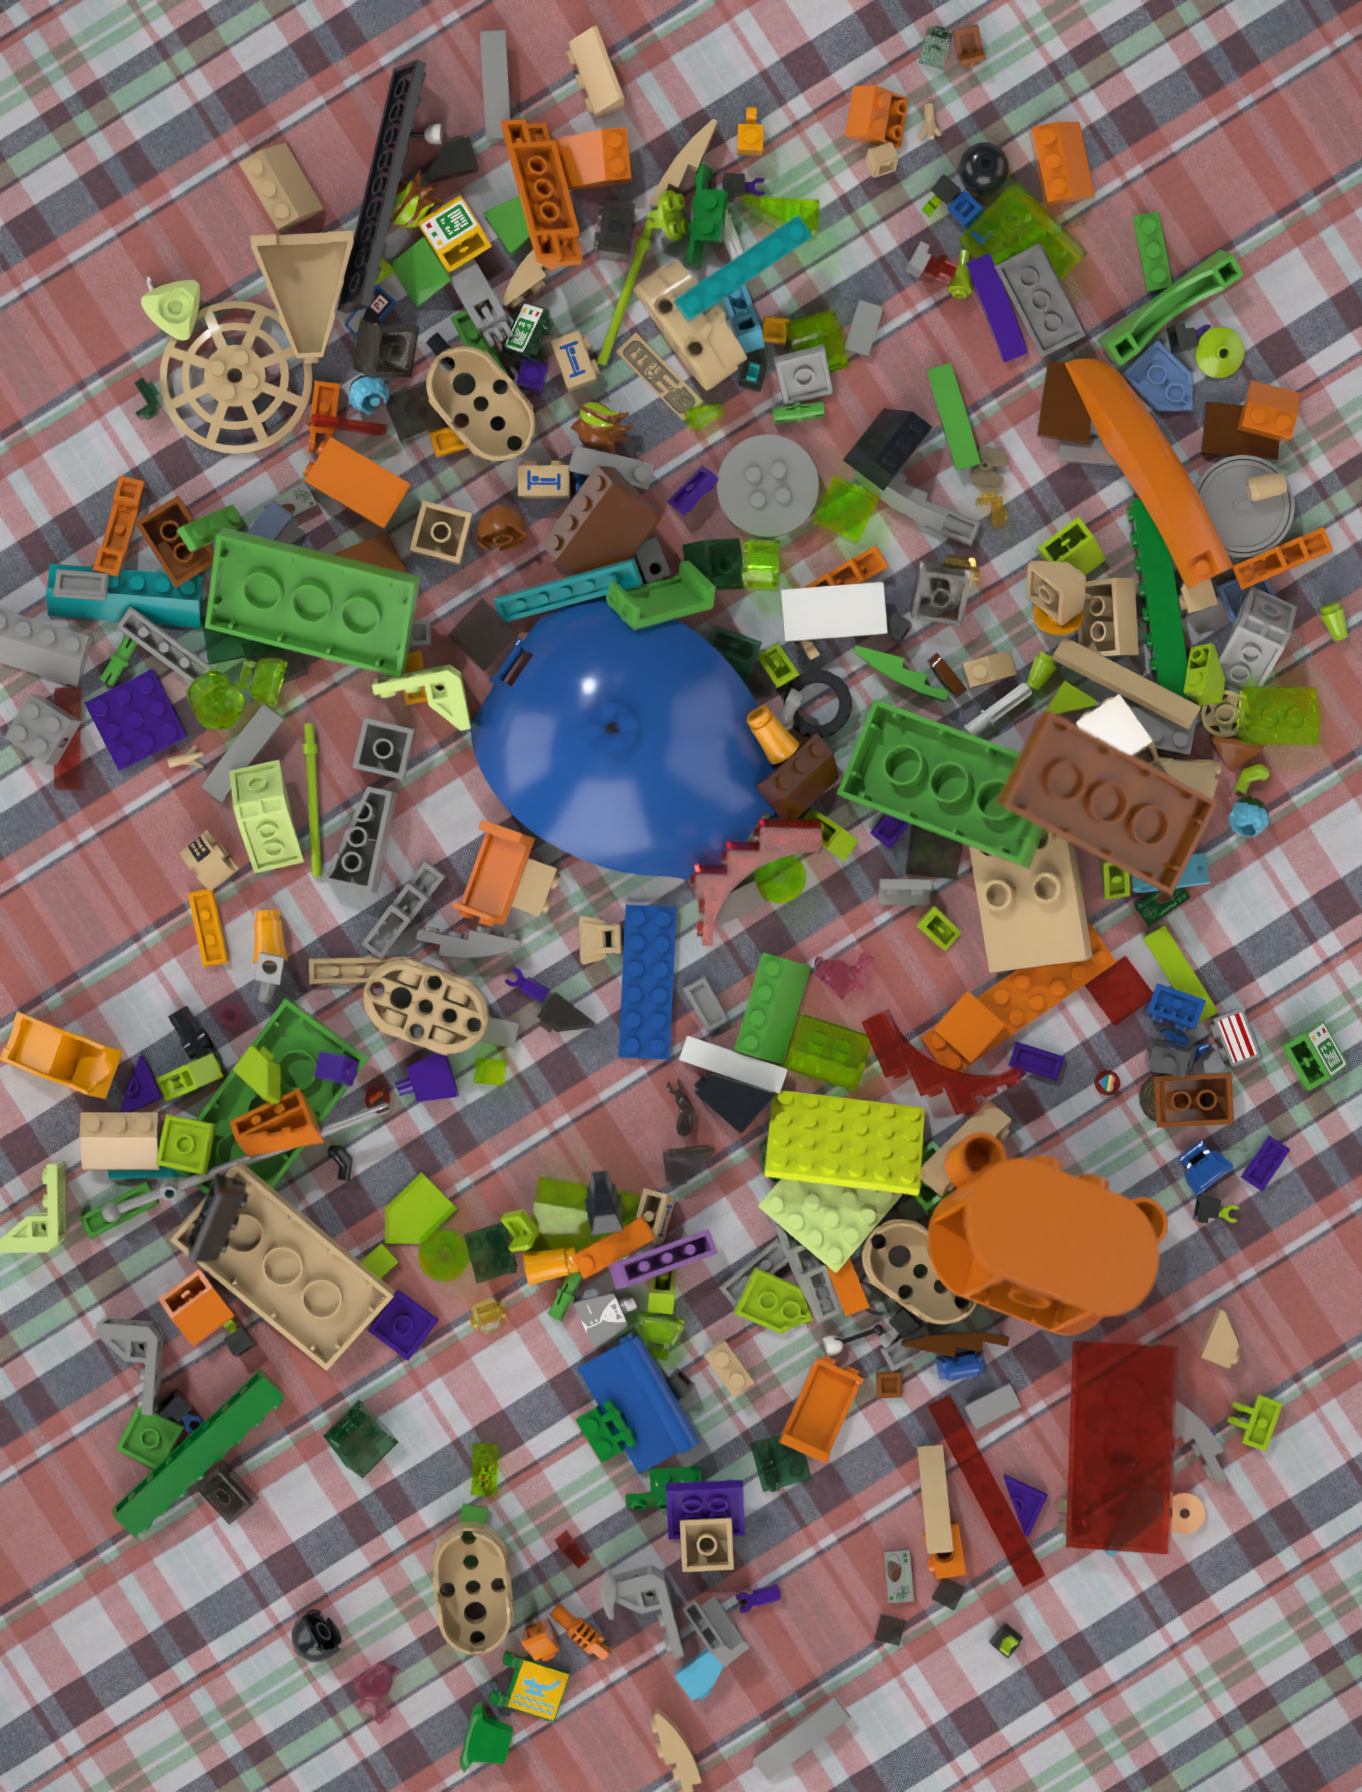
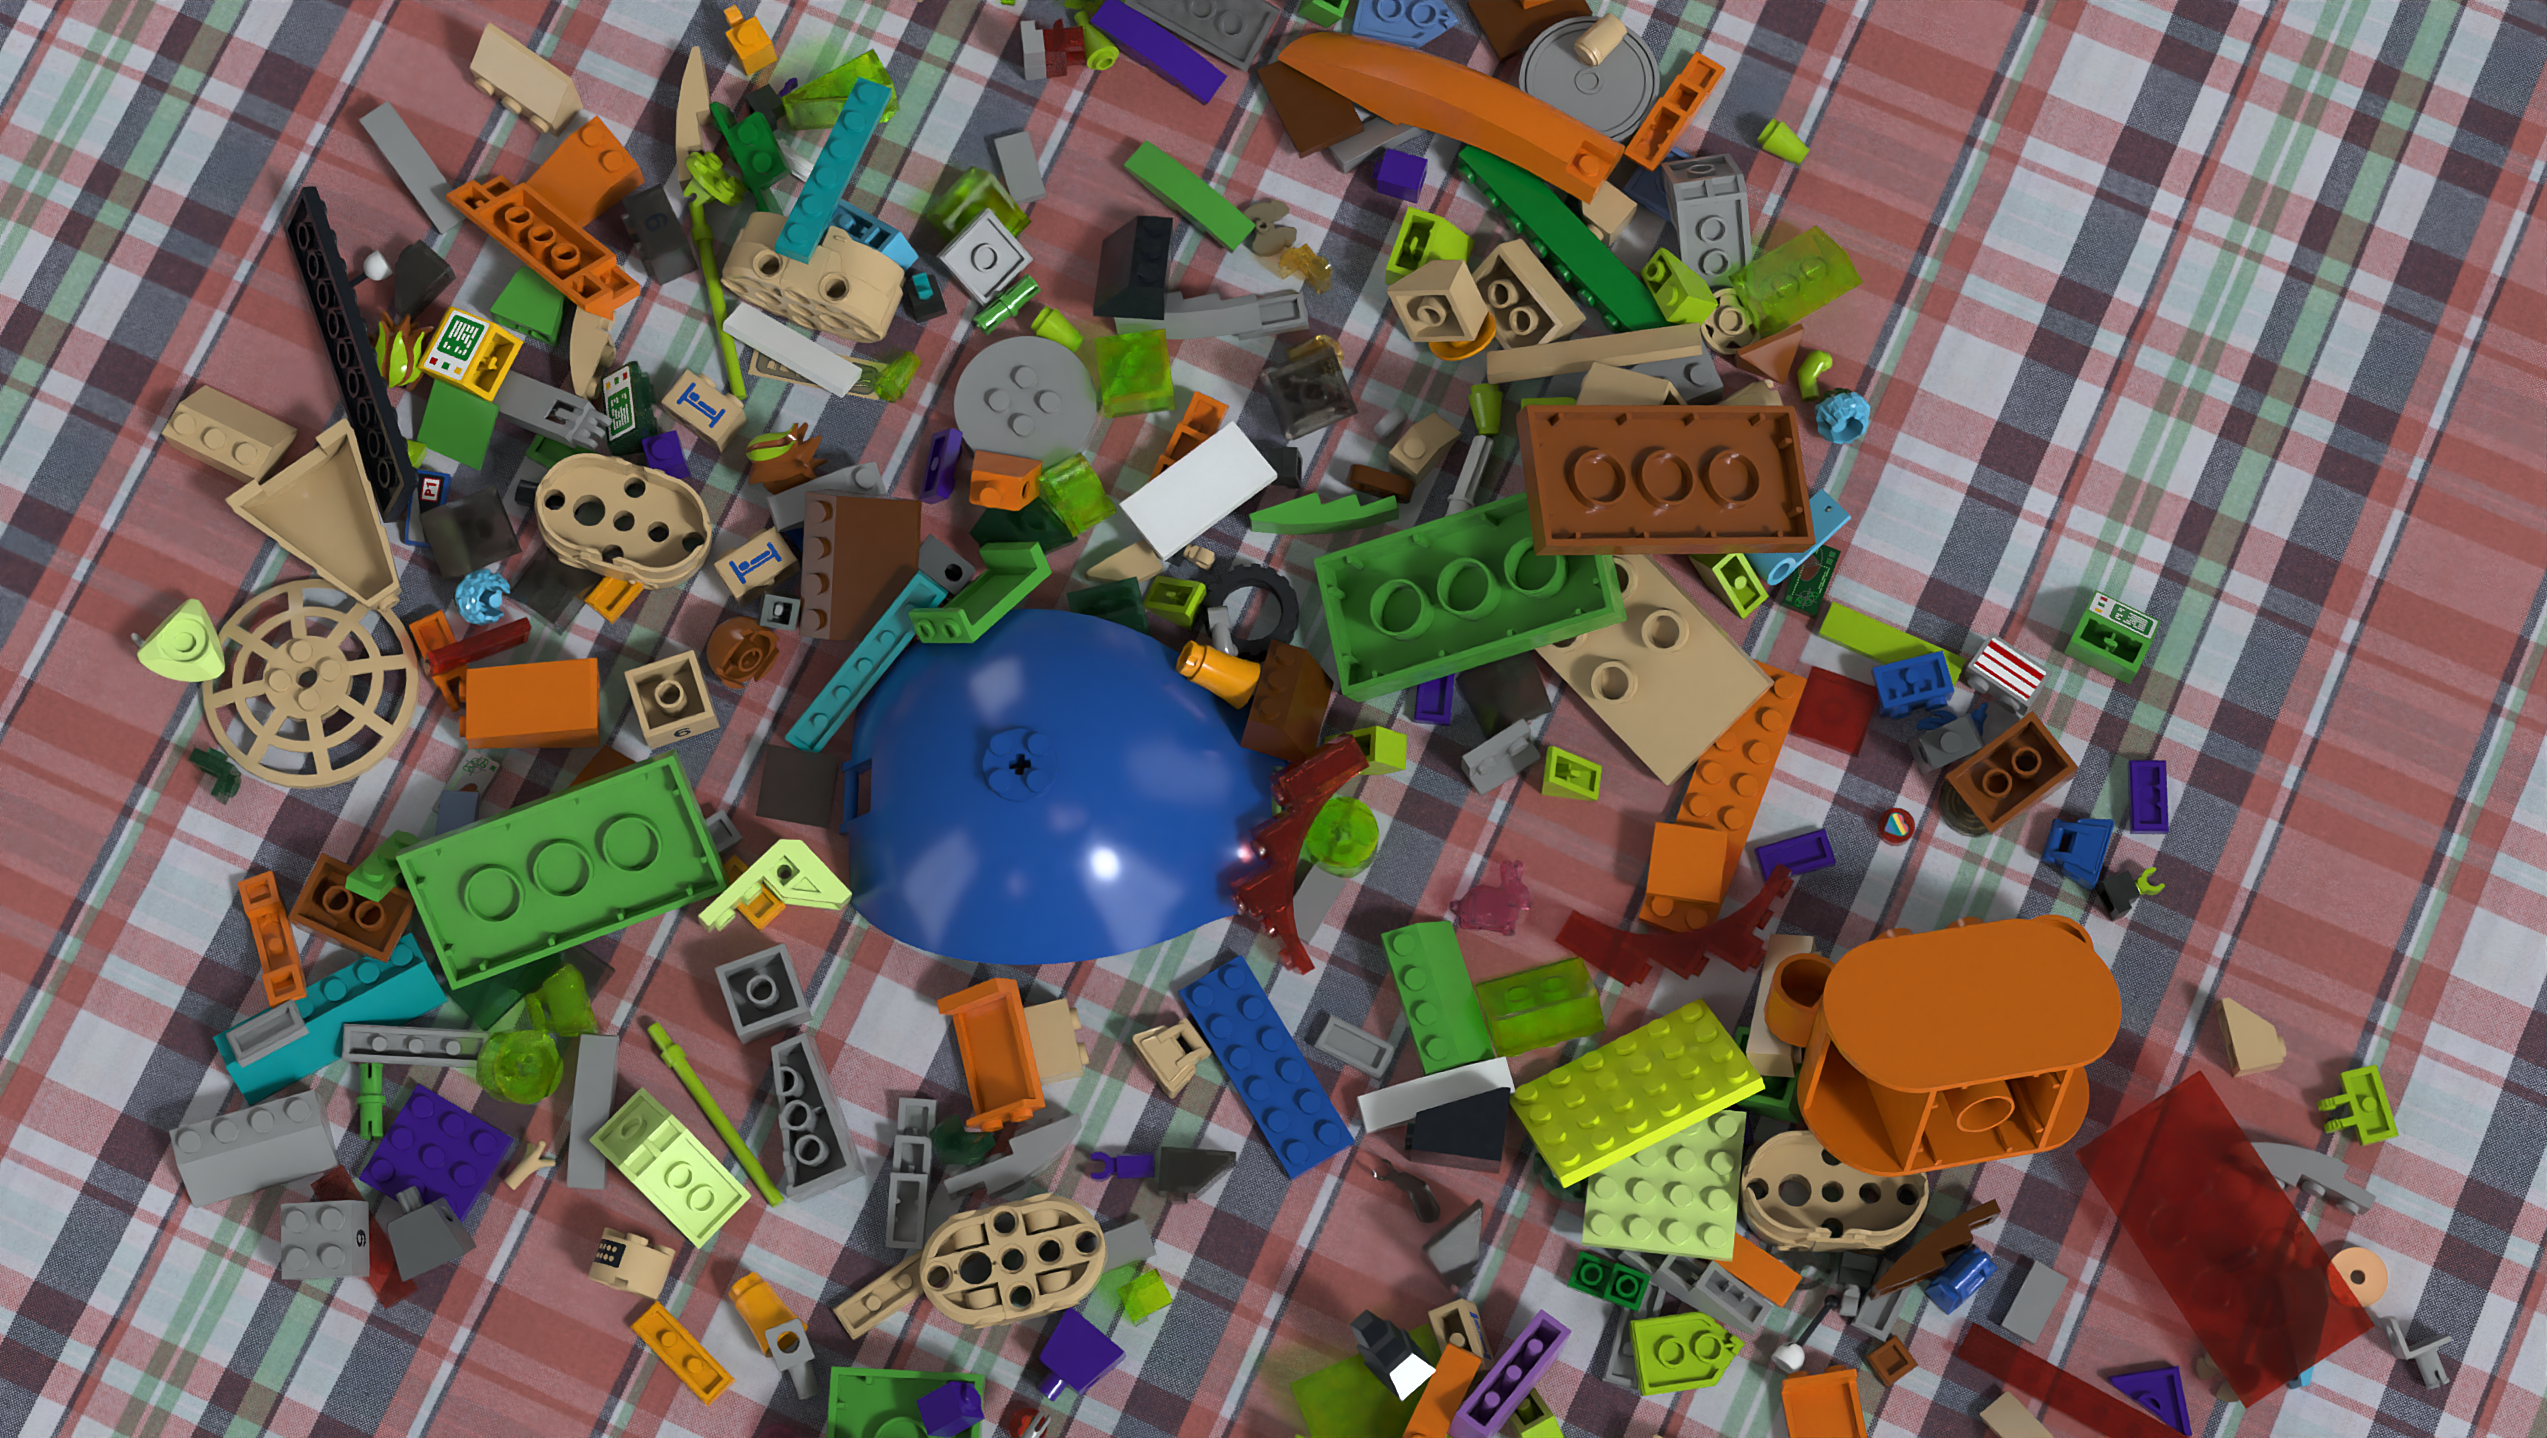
camera: 25 degrees left, 15 degrees down
(102, 765) = (426, 1234): none -> dark grey torso
(440, 912) = (957, 1145): none -> clear green bracket
(538, 520) = (778, 610): none -> pearl dark grey piece
(651, 356) = (792, 349): none -> white tile
(721, 529) = (1001, 480): none -> orange torso
(759, 1236) = (1609, 1281): none -> green slope
(762, 627) = (1129, 562): none -> tan slope
(774, 330) = (919, 233): light orange tile -> none
(817, 449) = (1055, 327): none -> lime cone
(978, 641) = (1390, 423): none -> light grey tile
(1089, 487) = (1400, 175): none -> dark purple brick
(1190, 1578) = (2422, 1352): none -> light grey bracket

